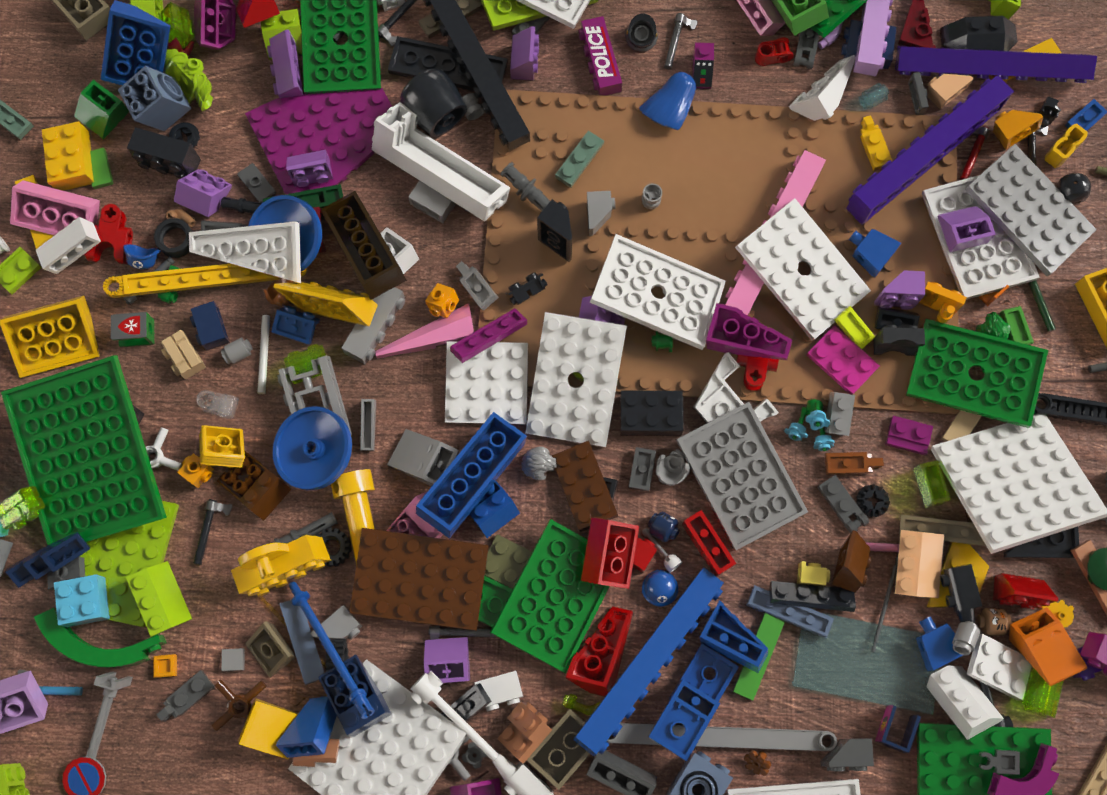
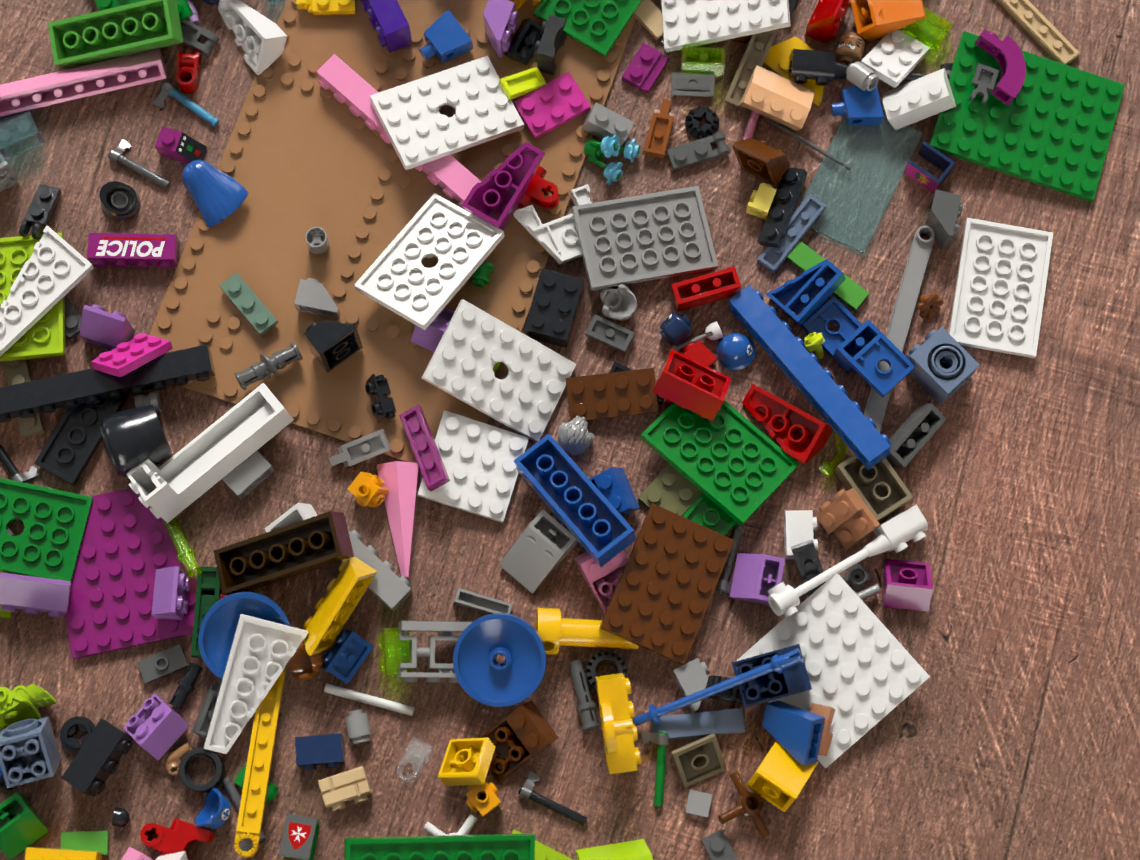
camera: 75 degrees left, 0 degrees up
(123, 187) = (120, 817): none -> black hinge
(278, 611) = (661, 739): none -> green piece
(353, 168) = (185, 554): none -> clear neon green pin
(503, 76) = (131, 354): none -> dark pink plate
(686, 658) = (814, 343): none -> neon yellow plate
(751, 43) = (170, 90): none -> dark azure piece
(907, 481) = (692, 84): none -> dark grey plate

